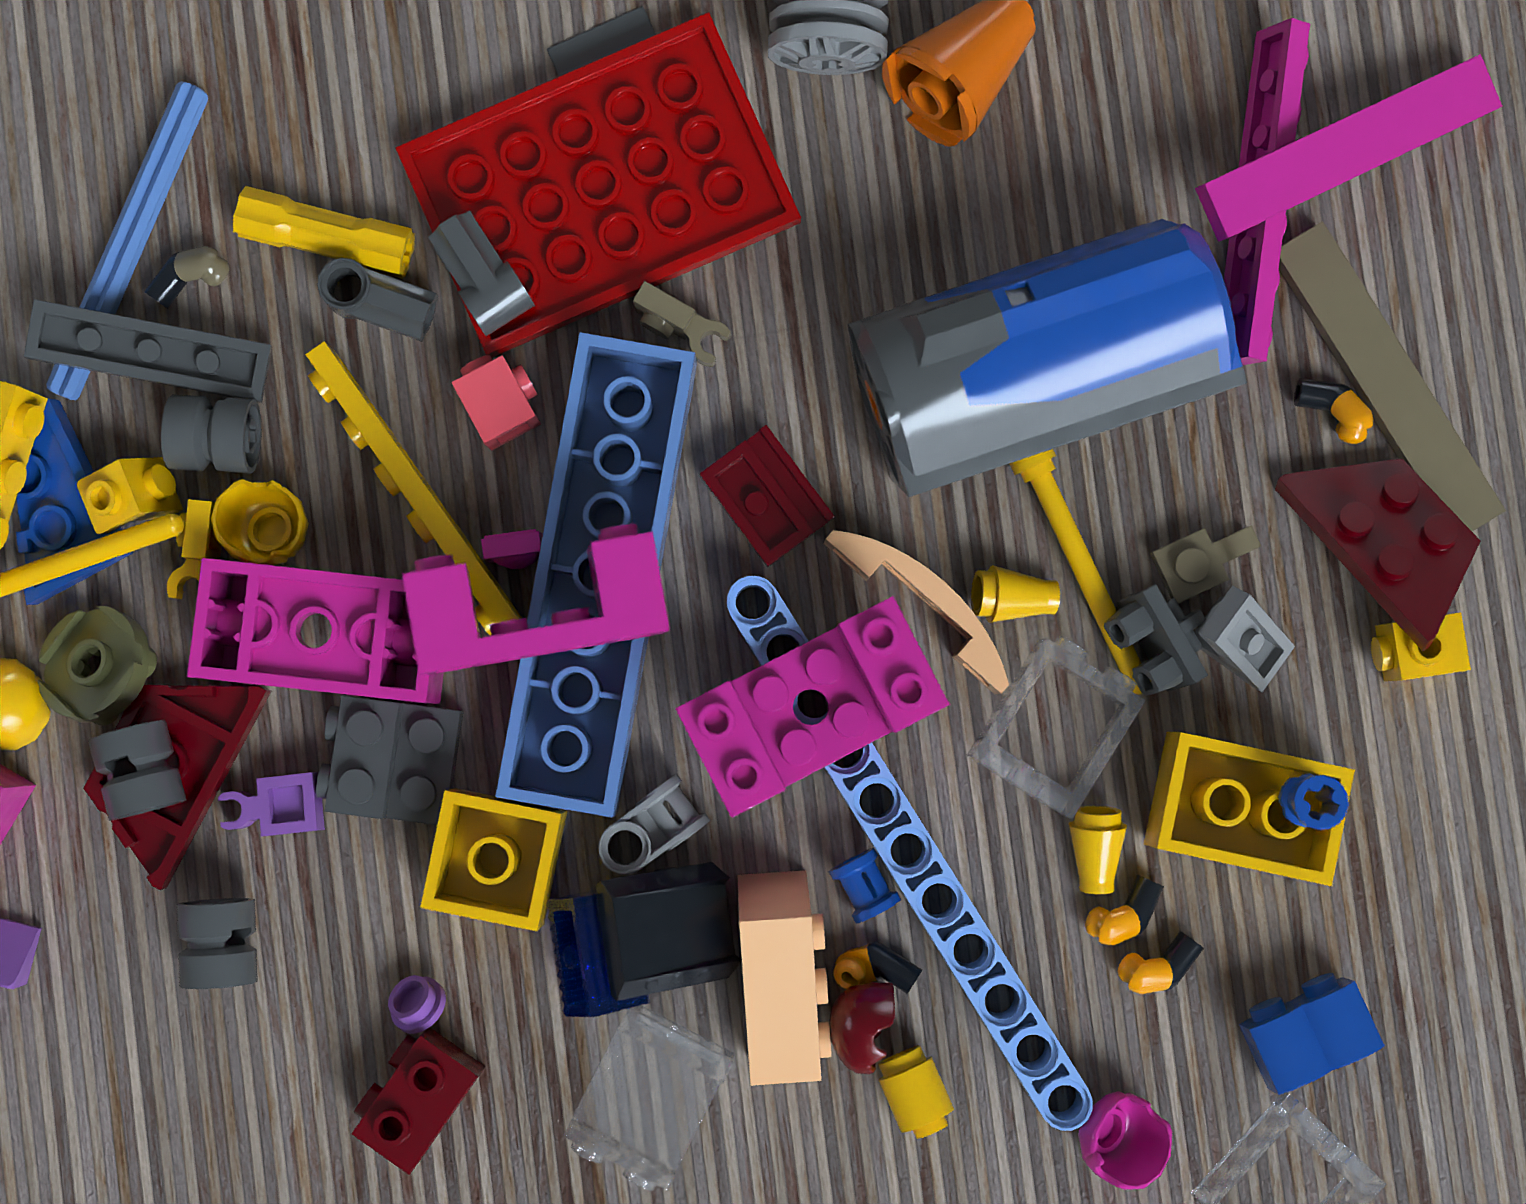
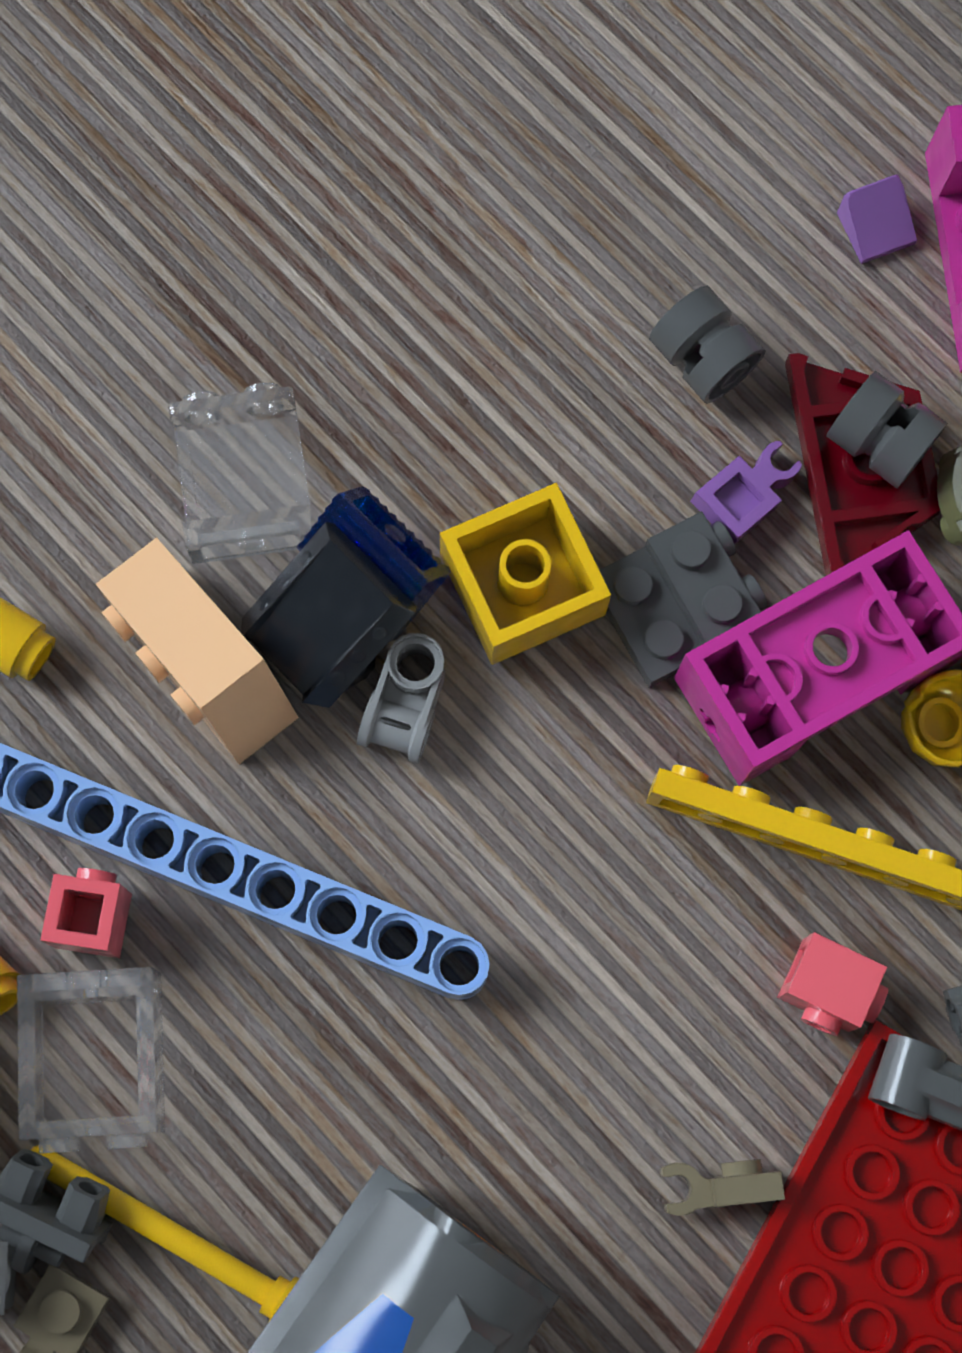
camera: 145 degrees right, 10 degrees down
(416, 1003) = (500, 412): medium lavender plate -> none
(417, 1099) = (440, 337): dark red brick -> none
(512, 549) = (712, 858): dark pink tile -> none
(611, 470) = (622, 893): medium blue brick -> none
(625, 592) = (718, 726): dark pink plate -> none
(766, 496) = (518, 1079): dark red plate -> none
(858, 1020) = (98, 658): dark red hair -> none
(864, 885) = (152, 783): blue bush -> none
(872, 687) = (360, 831): dark pink plate -> none
(875, 963) = (120, 722): arm -> none
(978, 652) = (218, 1071): light nougat slope -> none
(992, 830) = (87, 913): none -> coral brick
(1012, 595) = (219, 1154): yellow cone -> none

